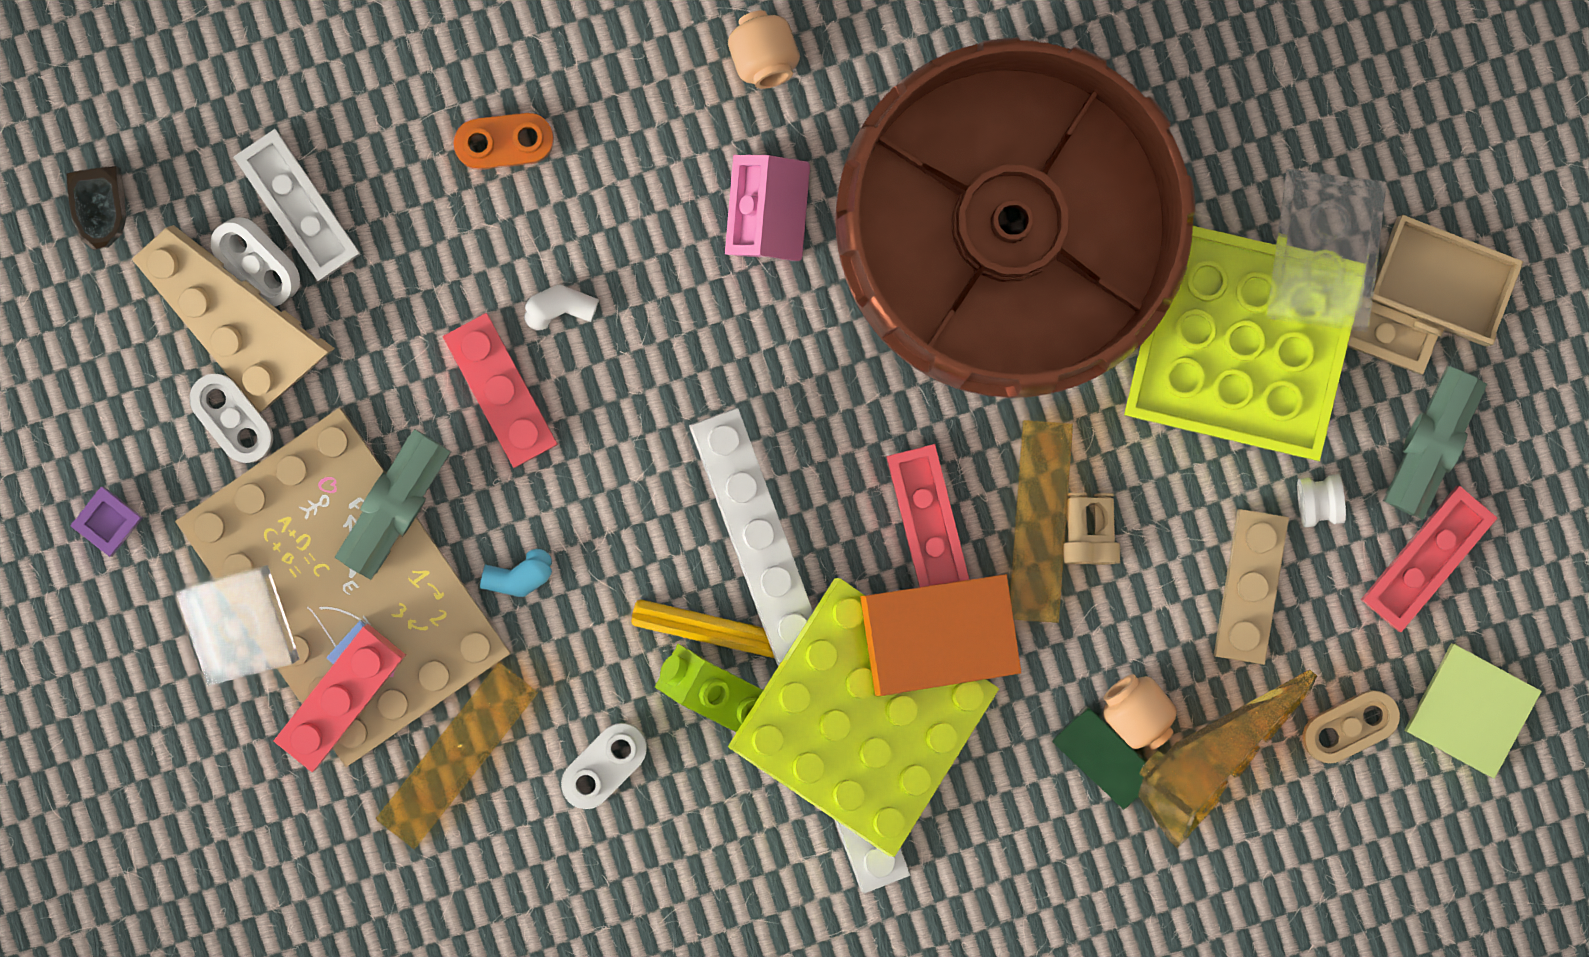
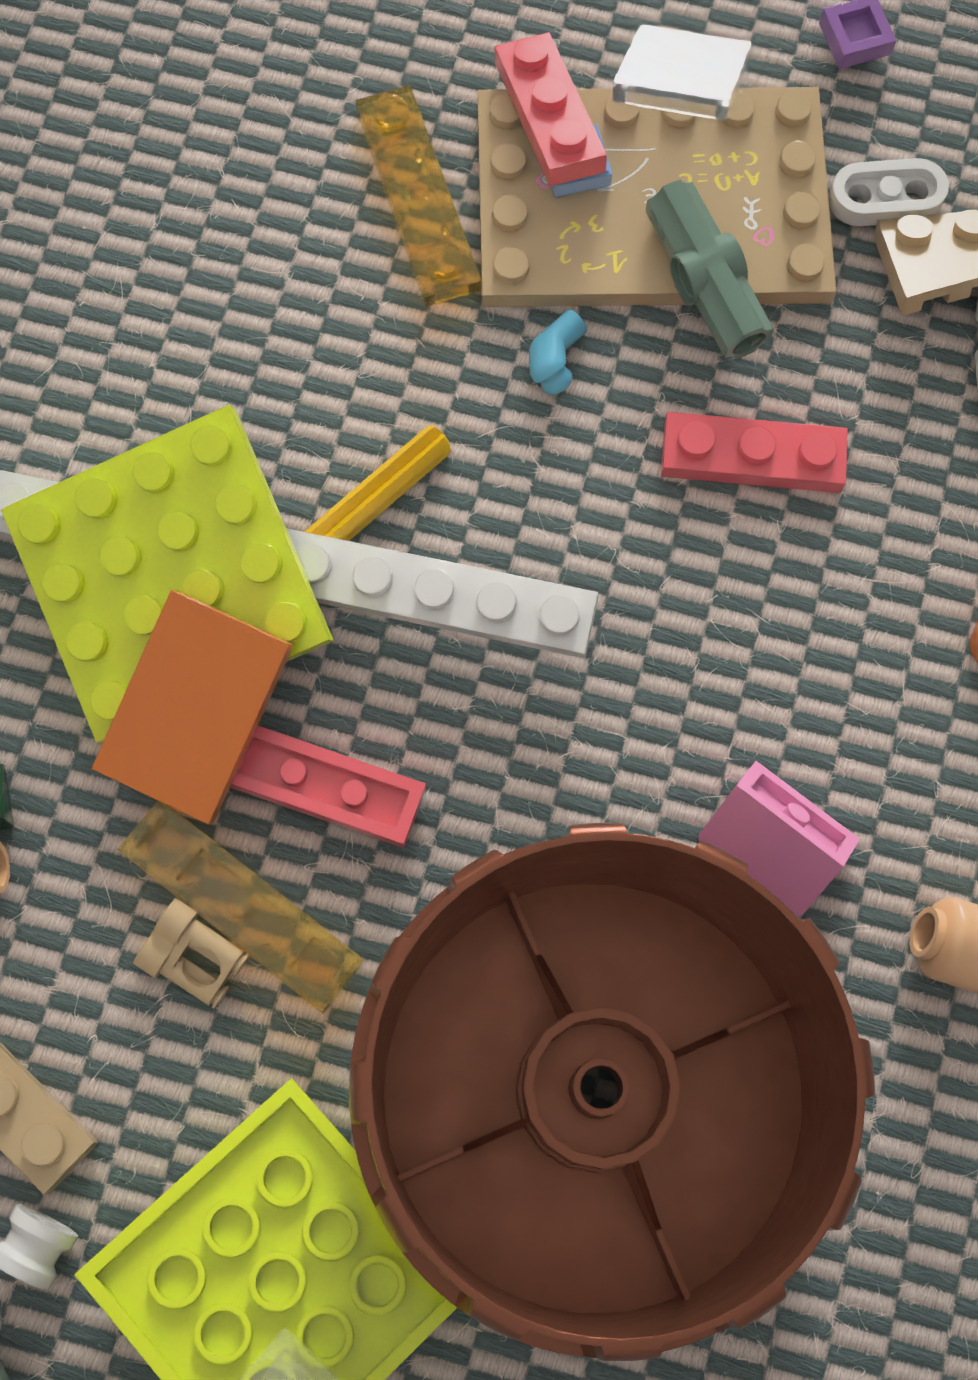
camera: 120 degrees right, 15 degrees down
(555, 302) = (813, 560): white arm -> none
(603, 765) = (309, 312): white plate -> none
(707, 688) = (310, 443): lime bracket -> none

